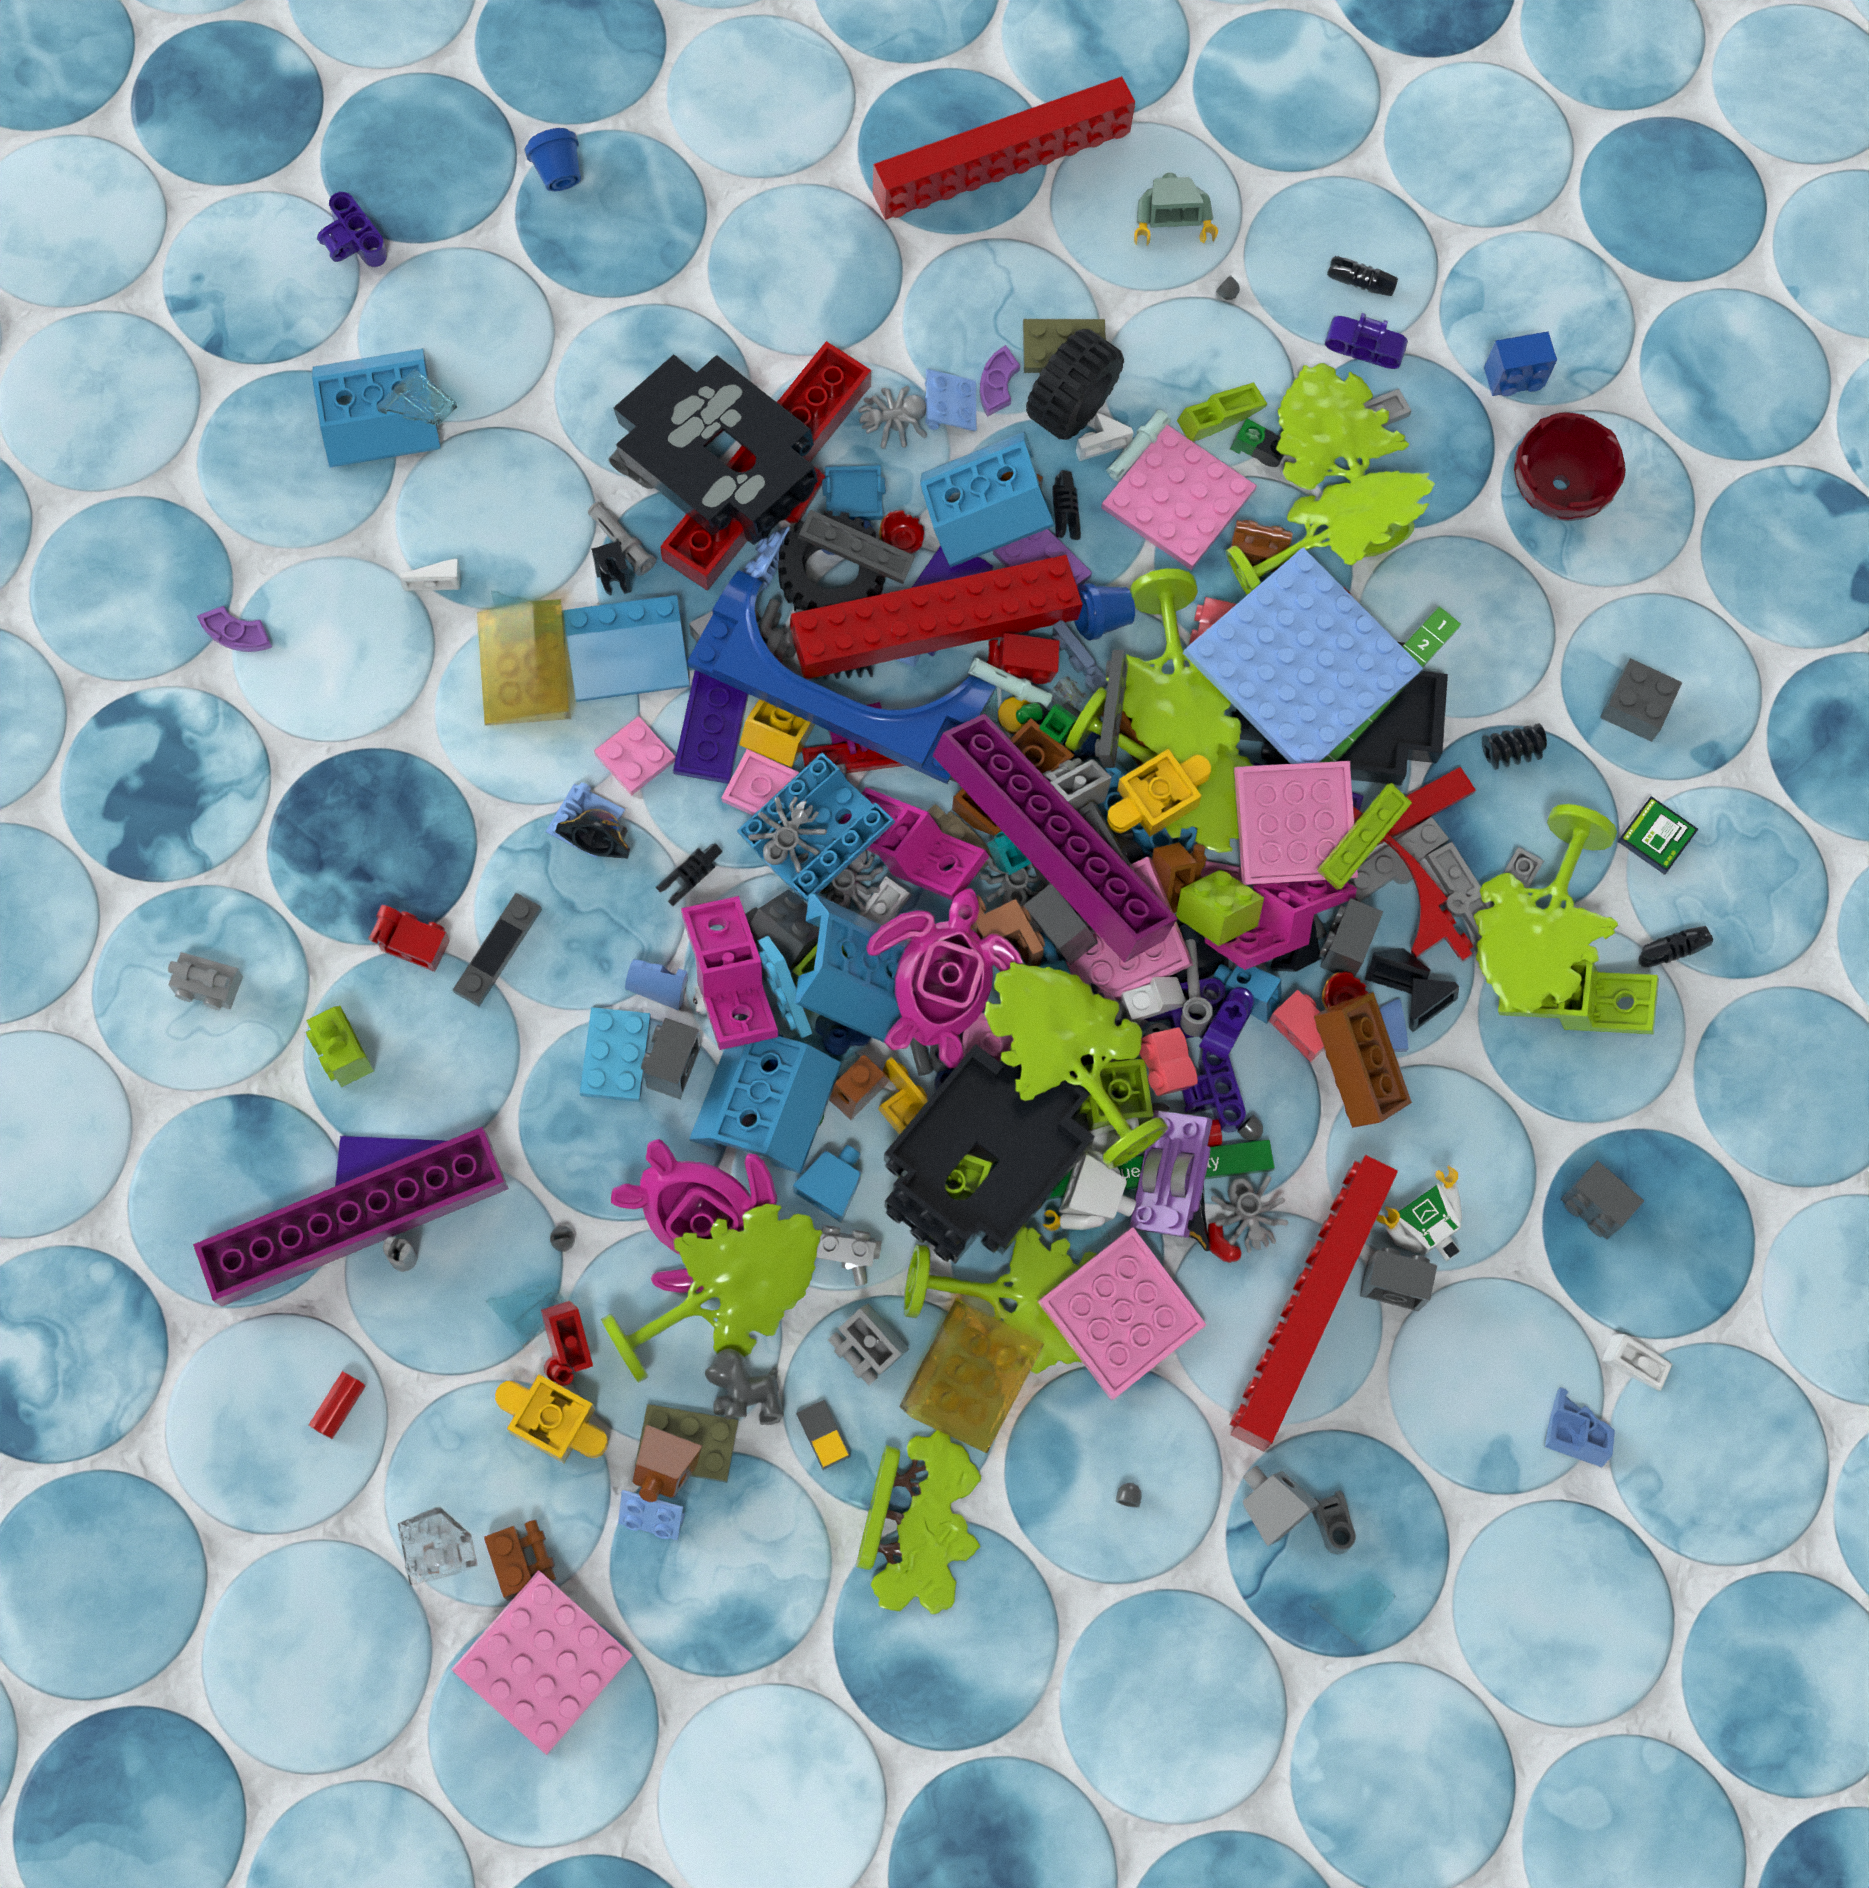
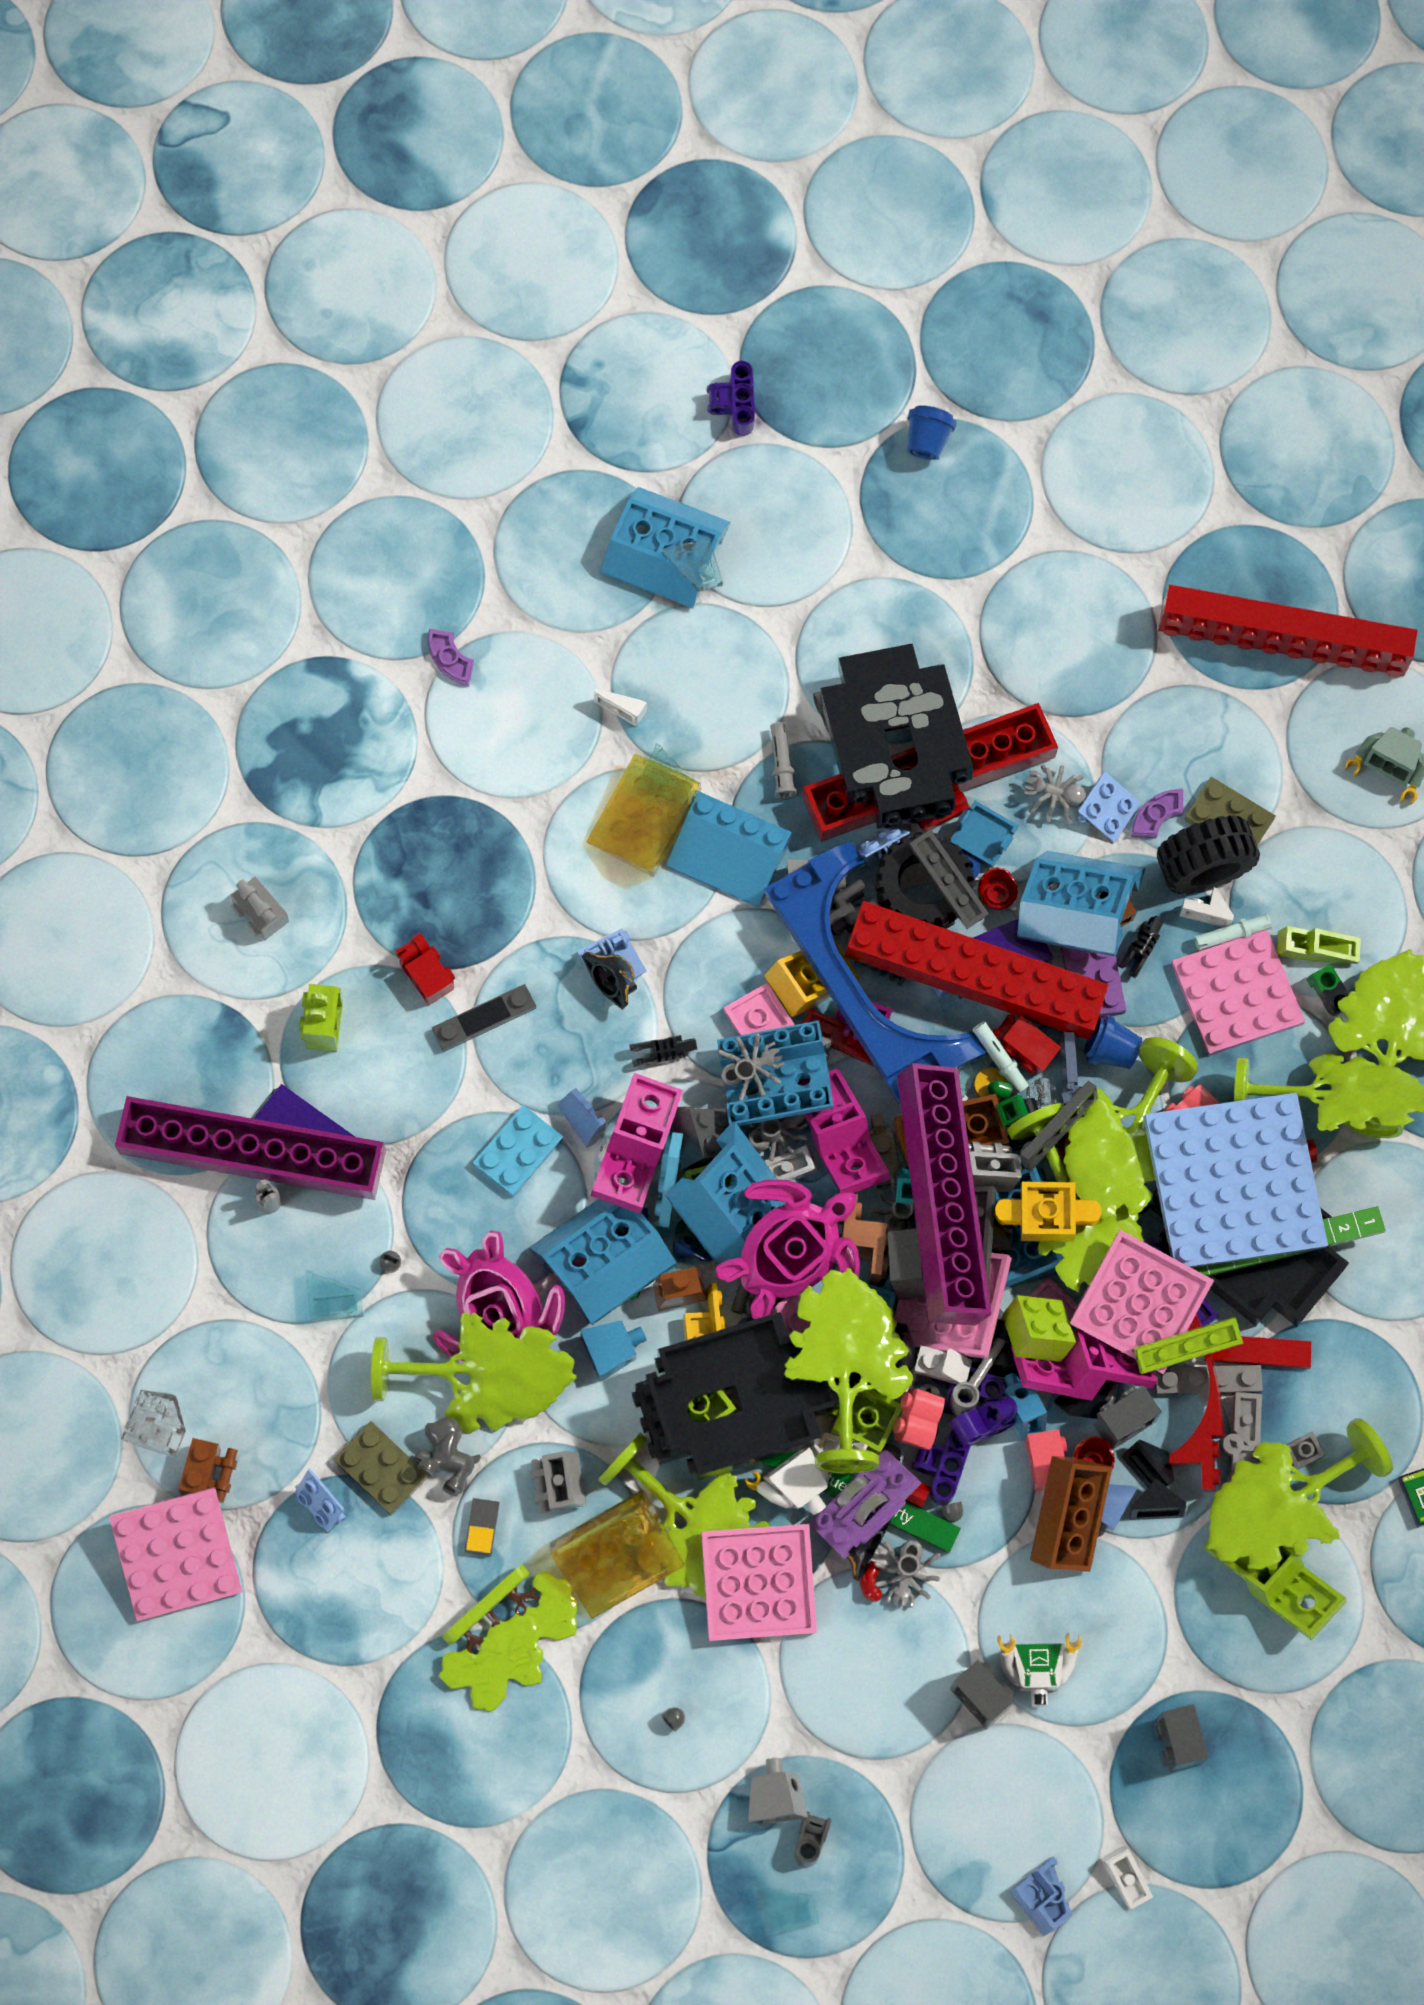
camera: 35 degrees right, 0 degrees up
(337, 1405) = (153, 1277): red axle -> none
(551, 1419) = (295, 1386): yellow brick -> none
(566, 1343) = (341, 1339): red hinge -> none
(611, 566) = (758, 779): black hinge -> none
(635, 755) = (681, 935): bright pink plate -> none
(664, 1463) = (352, 1470): torso -> none
(671, 1058) = (554, 1179): dark grey brick -> none
(710, 730) = (750, 951): dark purple tile -> none
(852, 1250) = (592, 1406): light grey brick -> none
(1178, 869) = (1026, 1280): dark orange brick -> none
(1229, 289) = (1393, 851): dark grey hinge -> none
(1260, 541) = (1271, 1067): dark orange brick -> none
(1313, 1304) = (907, 1668): red brick -> none
(1514, 745) = (1364, 1352): black piece -> none
(1675, 946) = (1383, 1587): black hinge -> none

